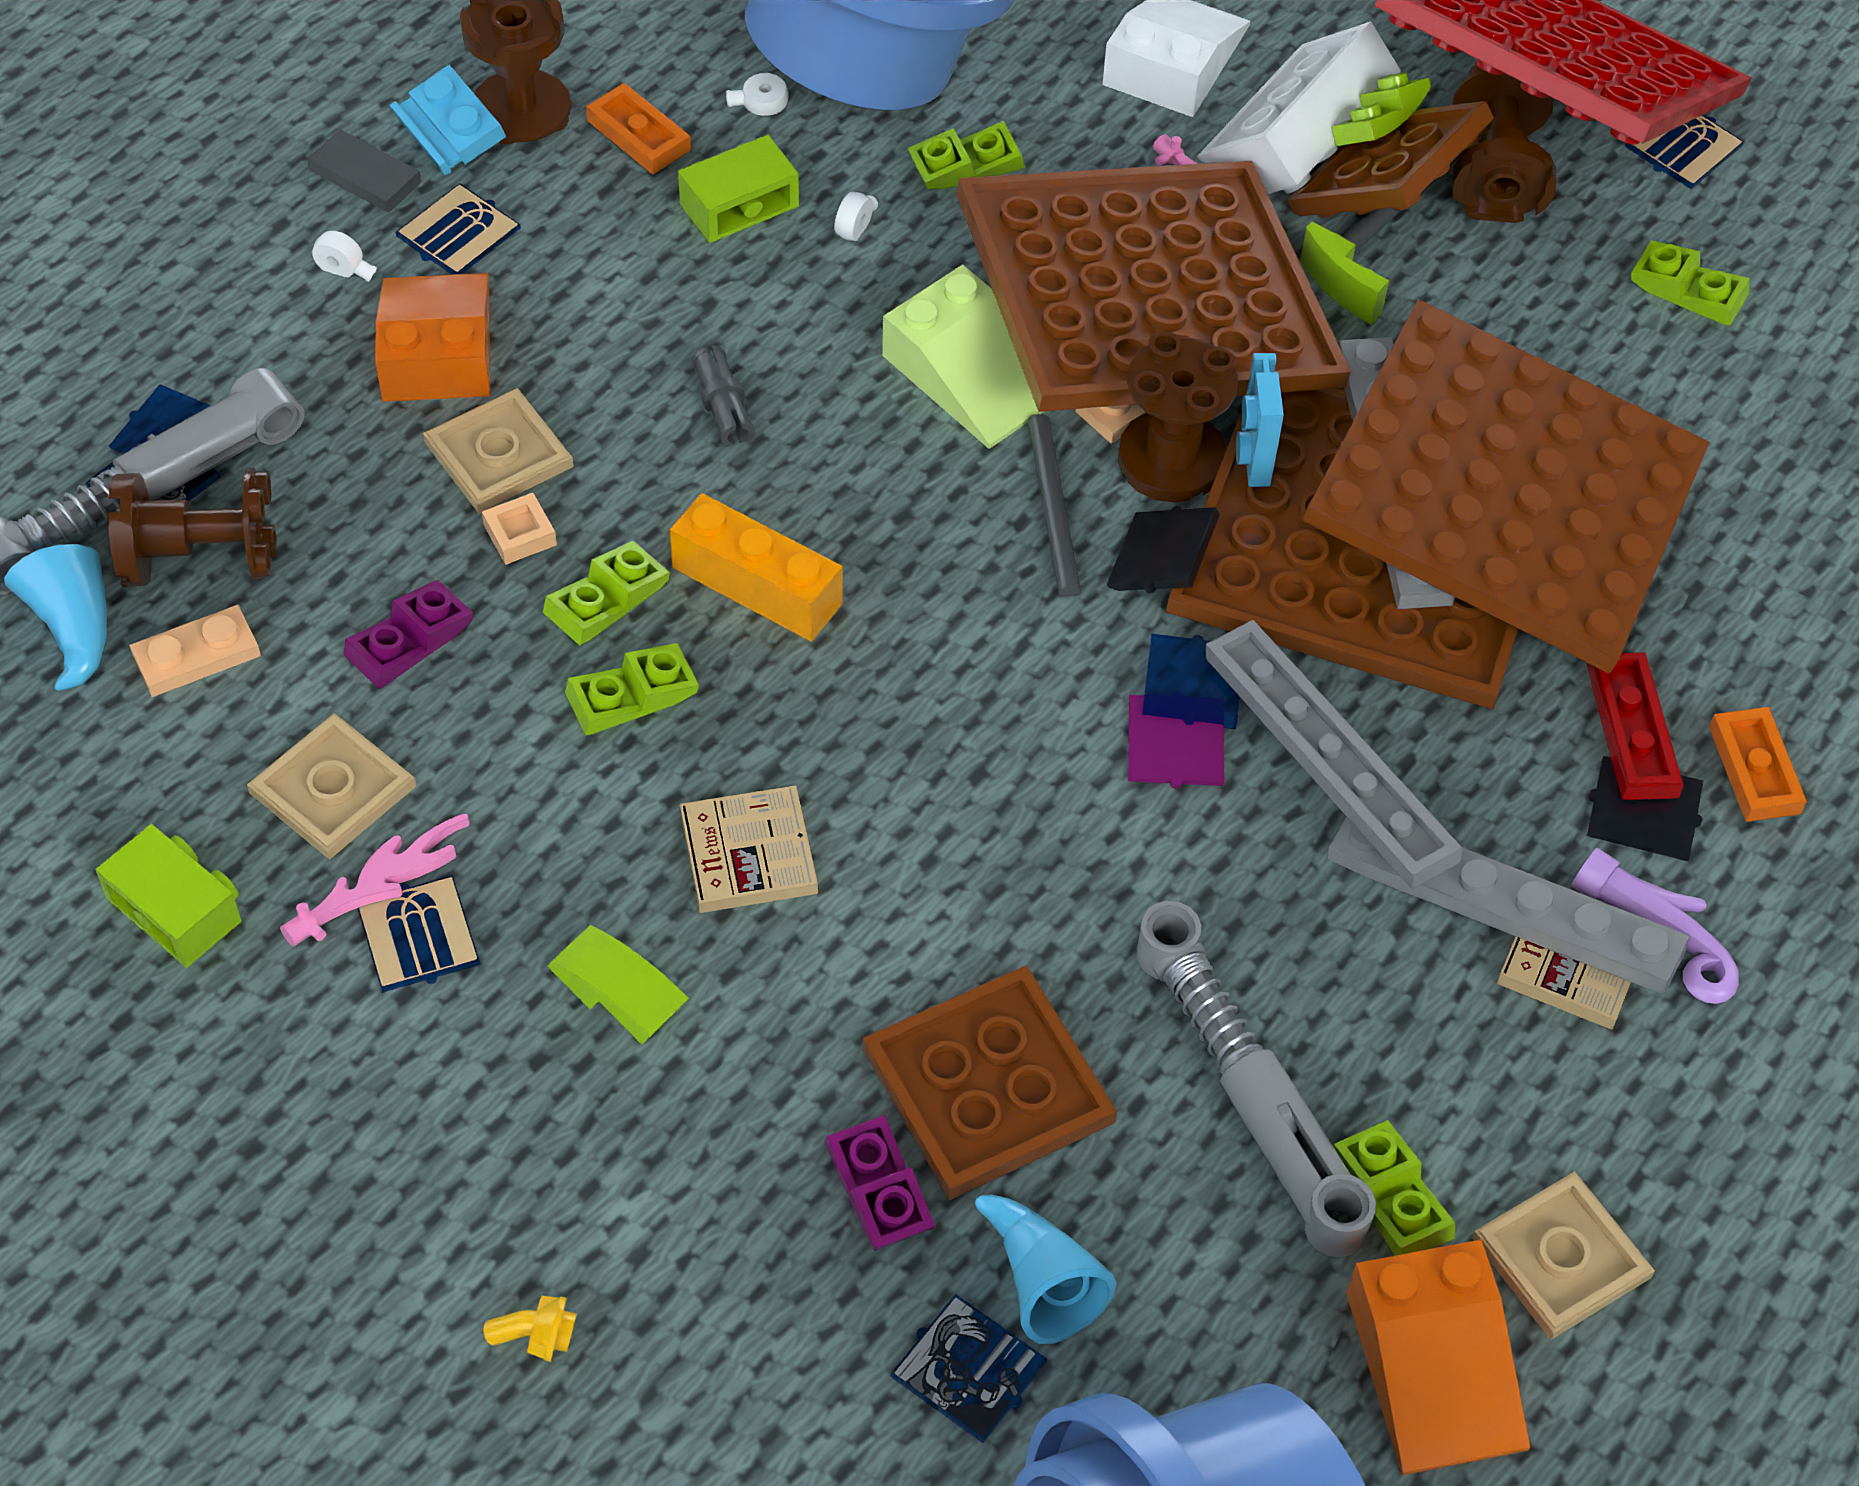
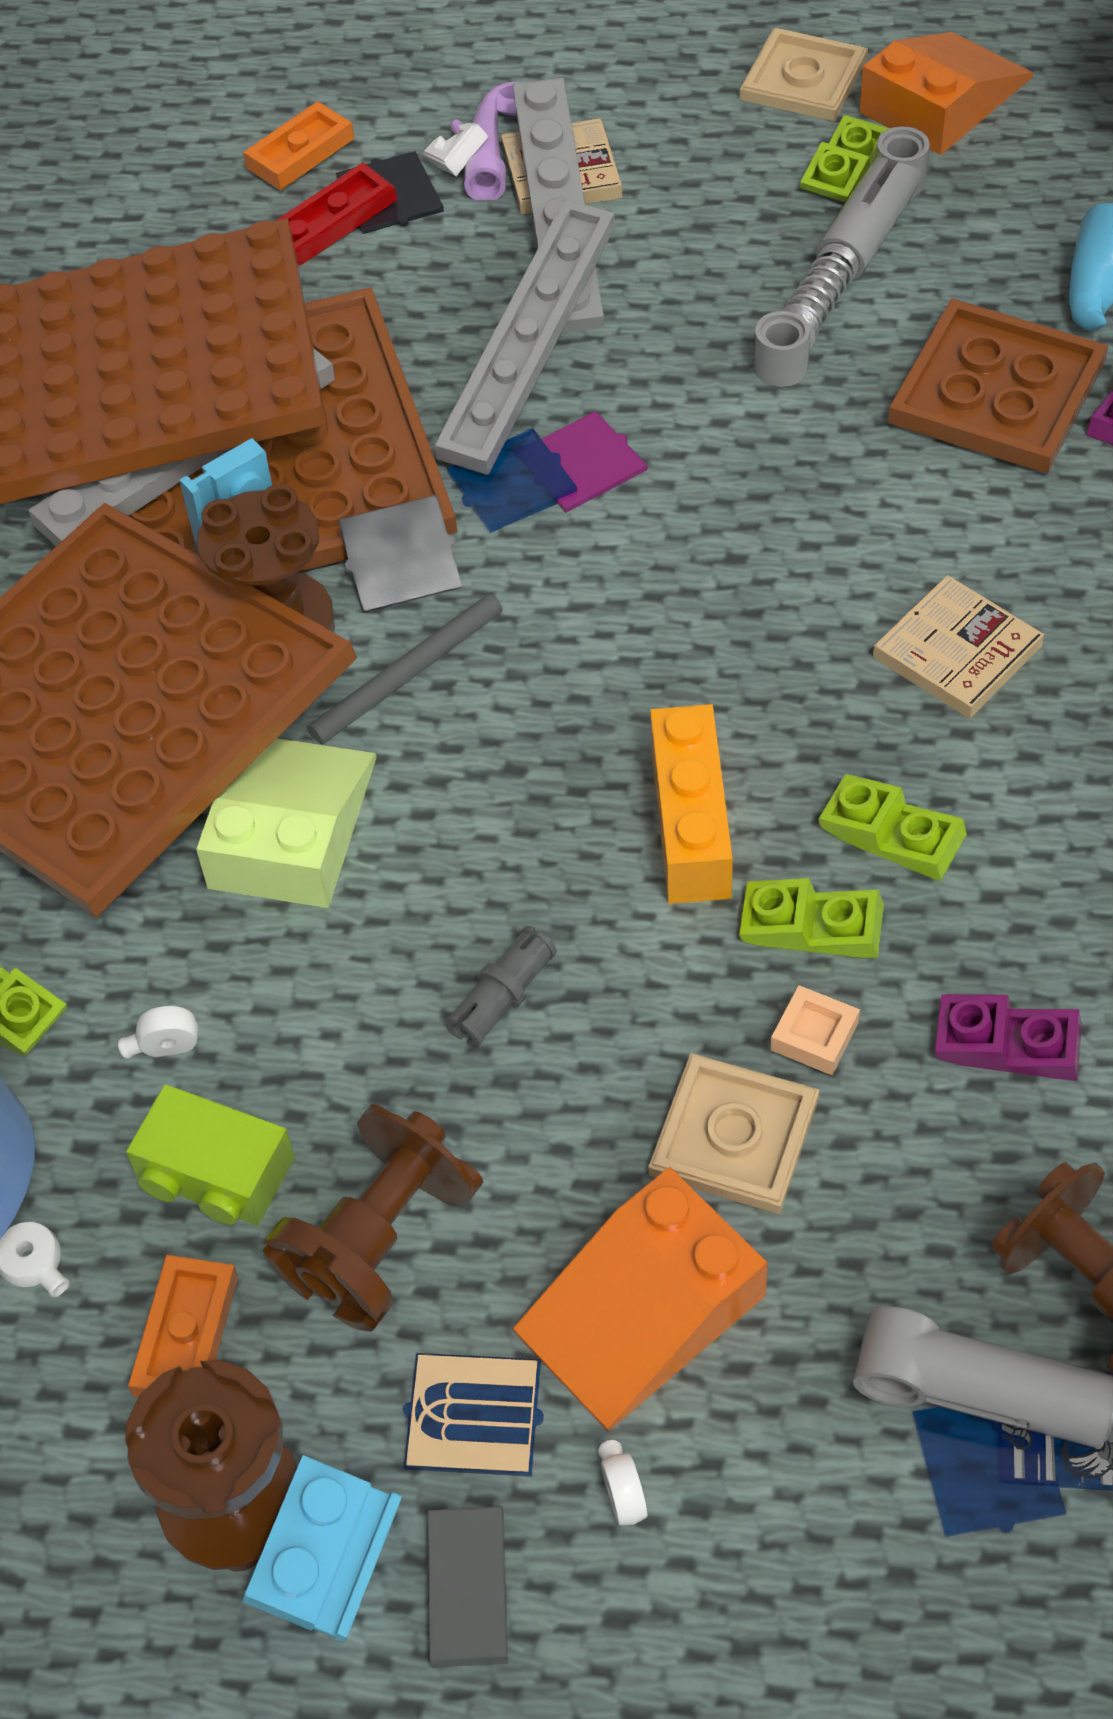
camera: 120 degrees left, 0 degrees up
(595, 188) = (357, 1234): none -> reddish brown piece
(1648, 865) = (455, 152): none -> white tile

